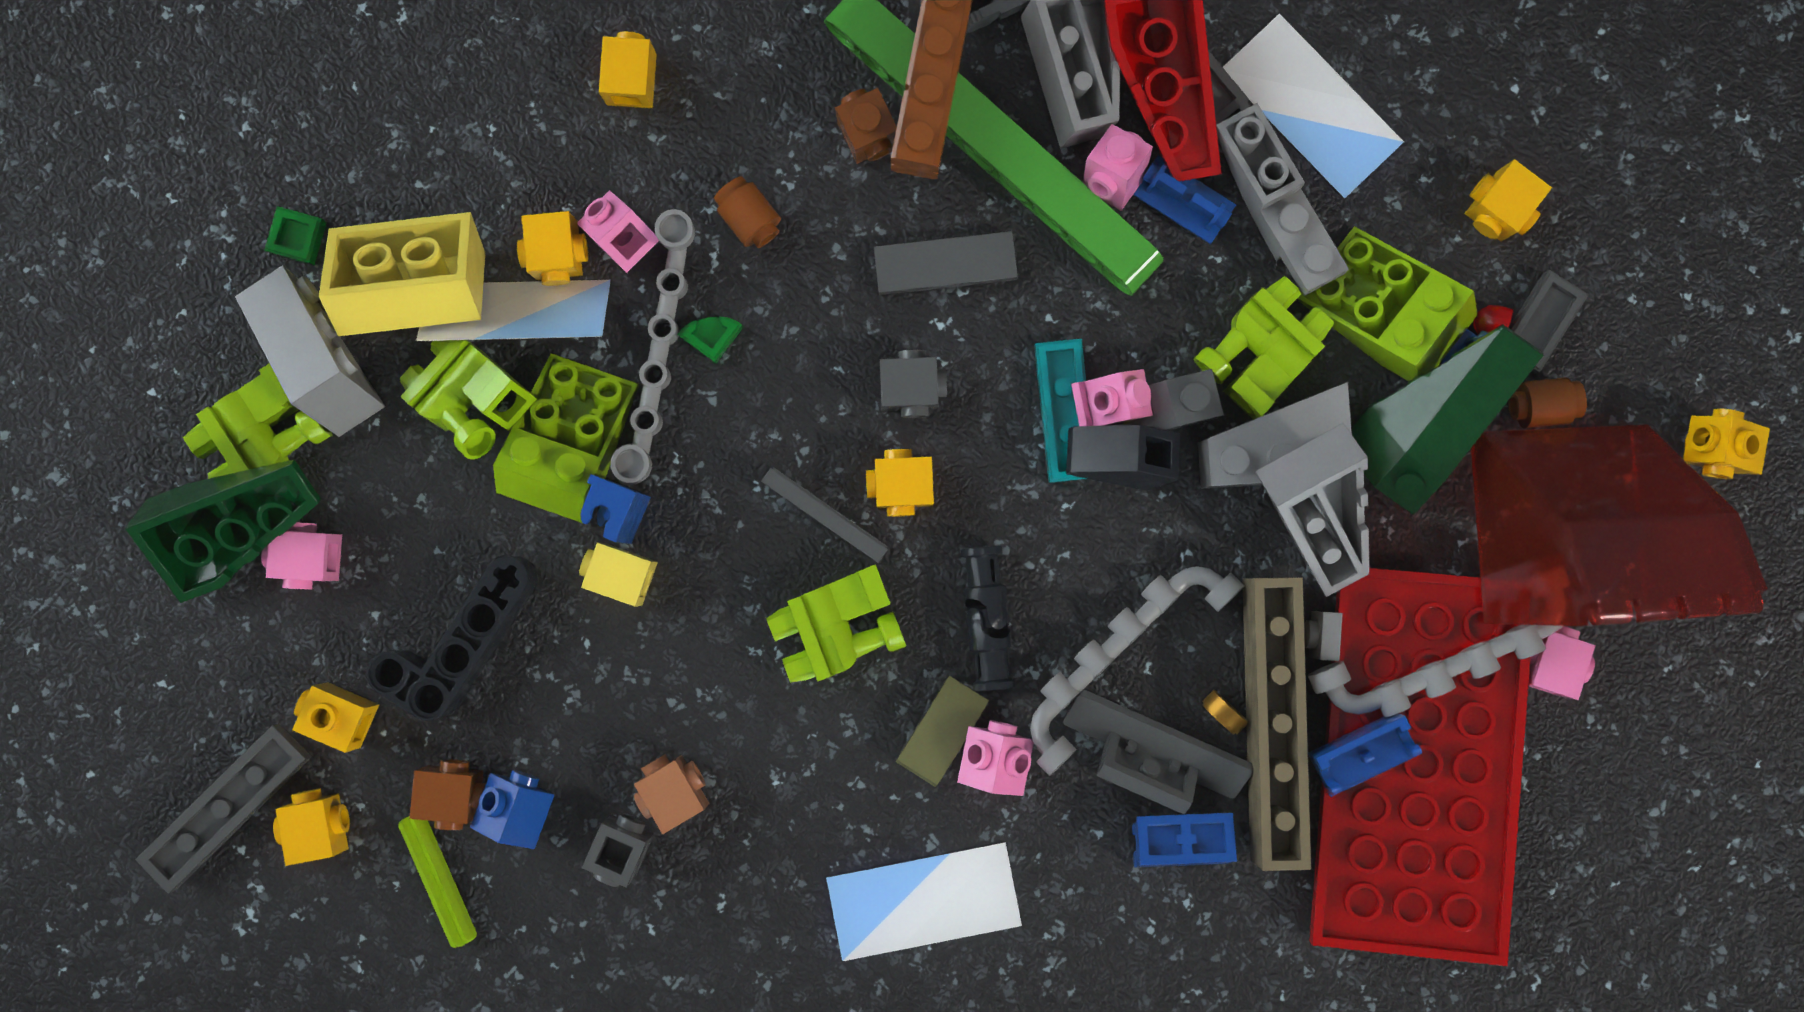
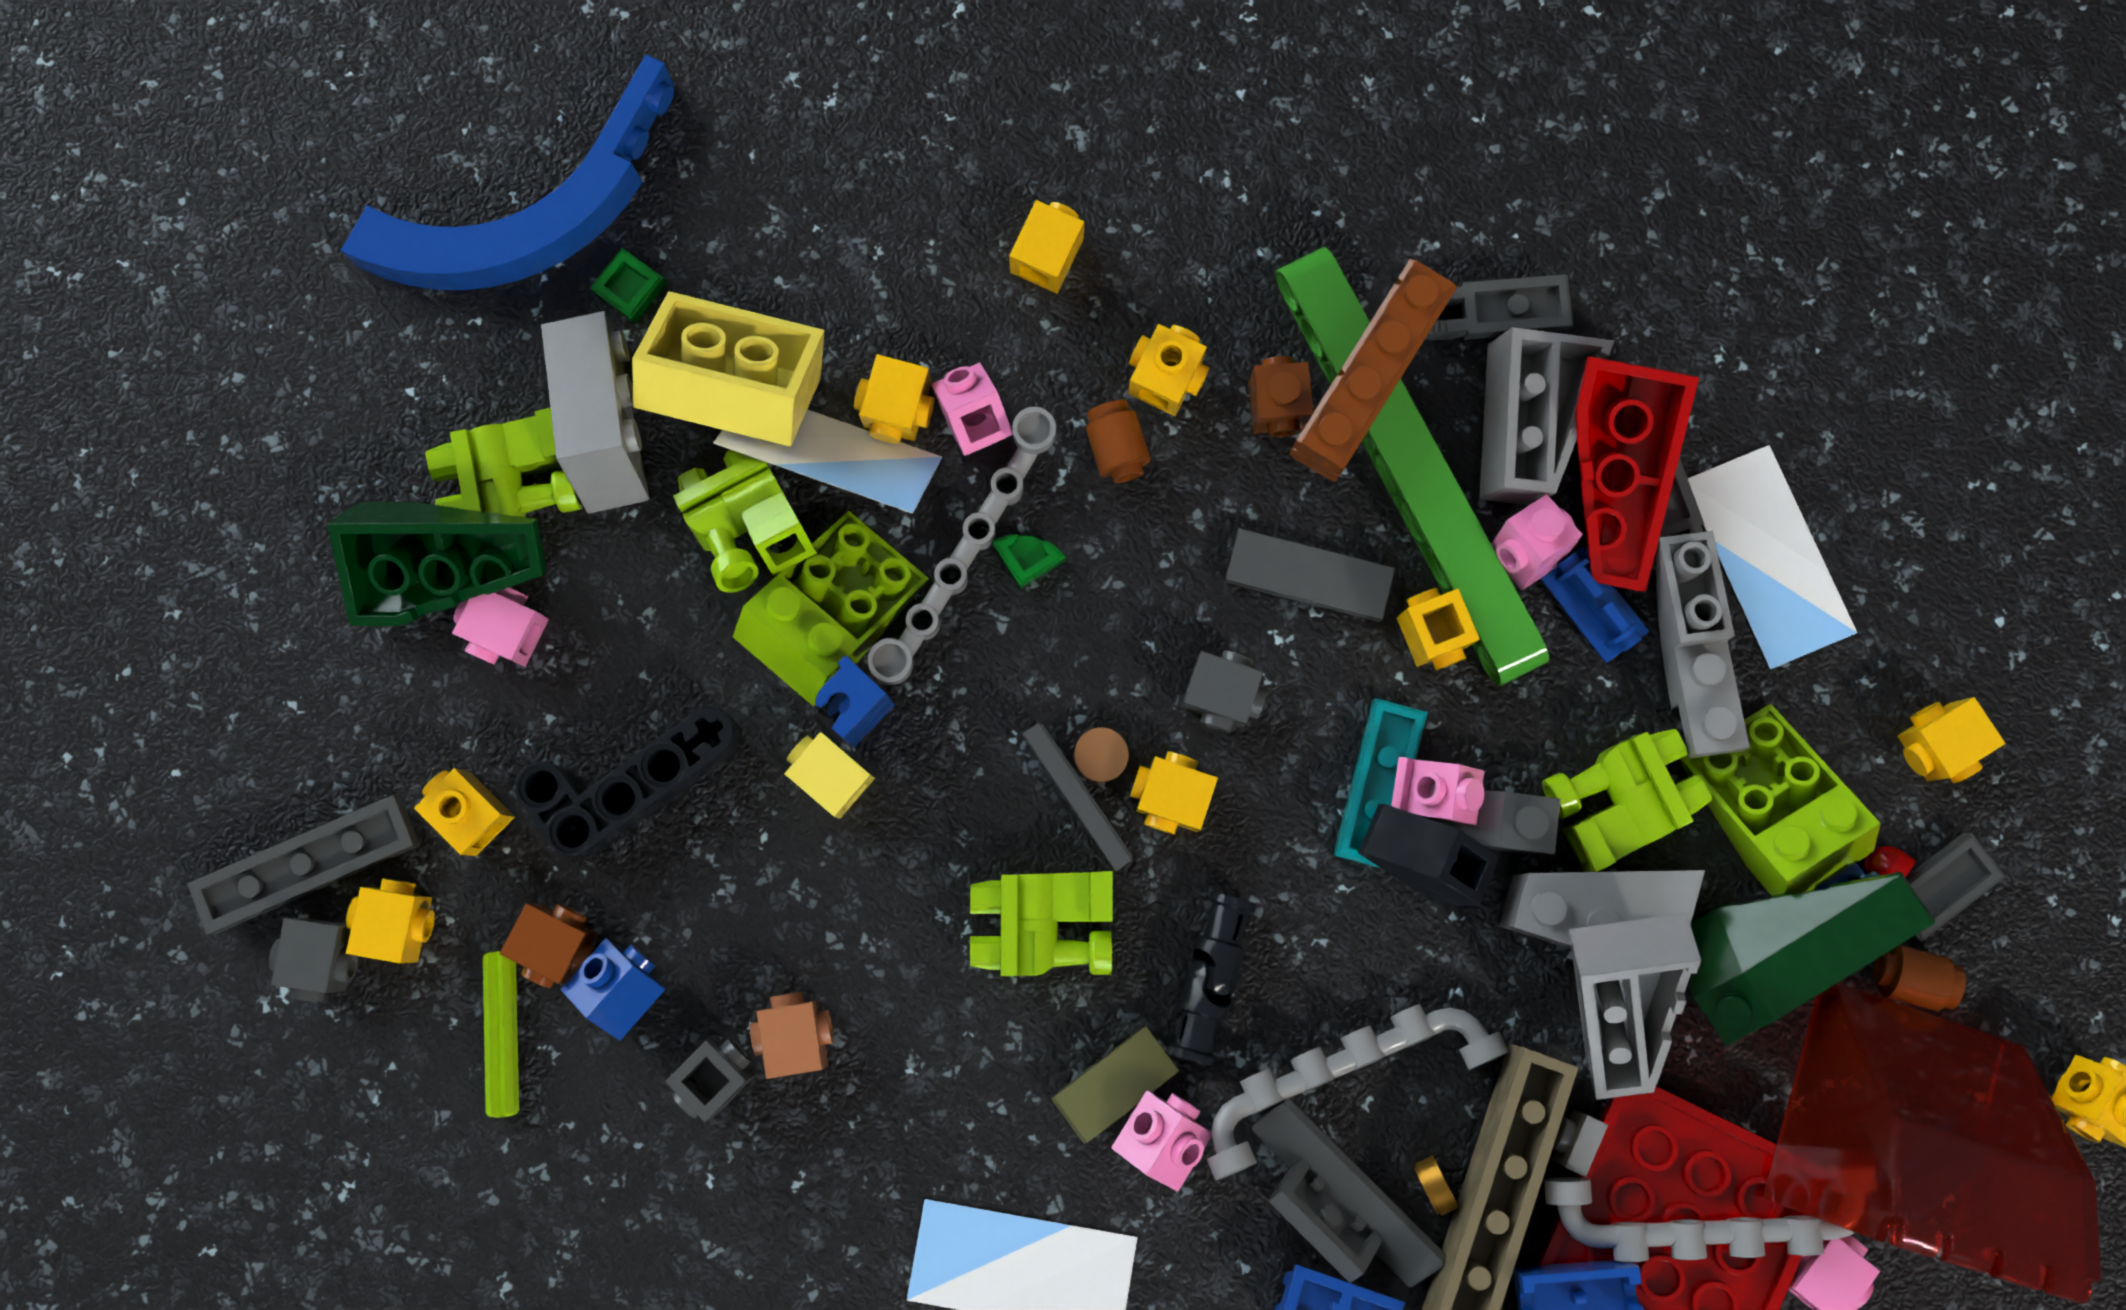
camera: 20 degrees right, 5 degrees down
(201, 223) = (537, 235): none -> blue arch
(261, 880) = (312, 958): none -> dark grey brick
(765, 136) = (1168, 368): none -> yellow brick
(832, 473) = (1101, 755): none -> medium nougat tile
(1064, 267) = (1437, 628): none -> yellow brick

